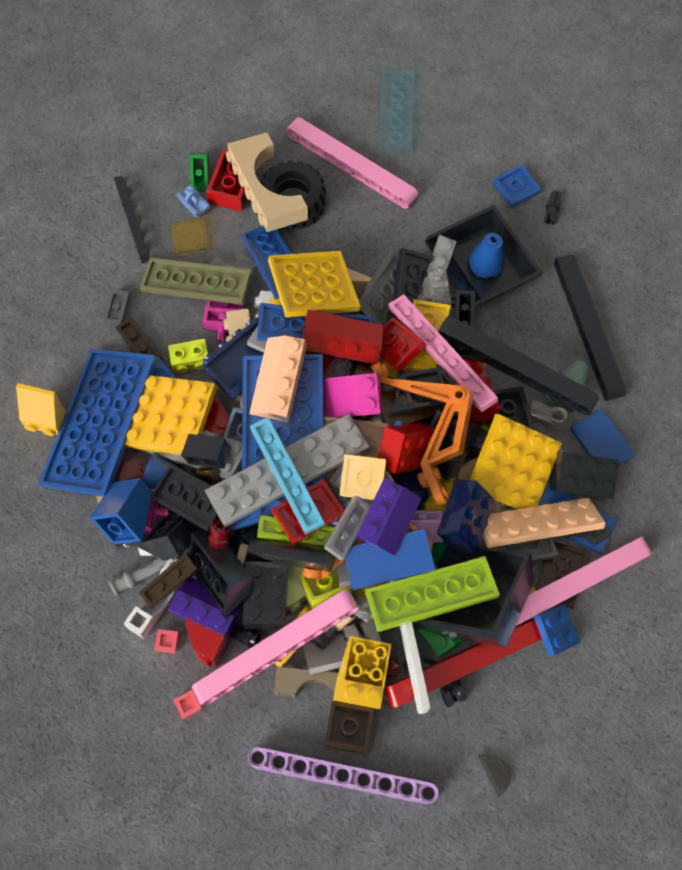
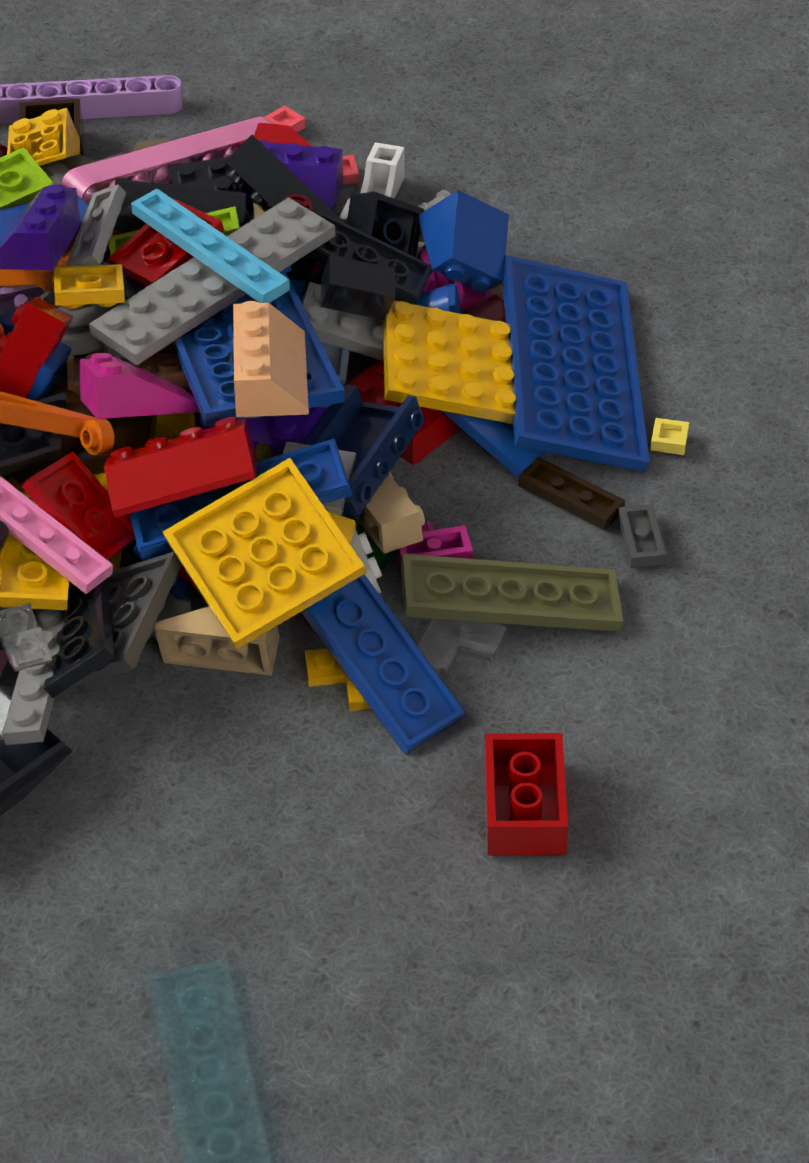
camera: 165 degrees right, 20 degrees down
(39, 409) = (673, 343): yellow slope -> none
(71, 366) = (669, 436): none -> light yellow plate
(134, 227) = (701, 688): black beam -> none
(169, 580) = (339, 197): dark brown tile -> none
(187, 355) = (470, 489): neon yellow brick -> none
(189, 236) = (568, 691): clear yellow tile -> none
(193, 201) = (591, 739): medium blue hips -> none
(199, 170) = (610, 814): green slope -> none
(272, 209) = (401, 688): tan arch -> none
(302, 177) = (383, 831): black tyre -> none
(352, 162) = (285, 911): bright pink beam -> none

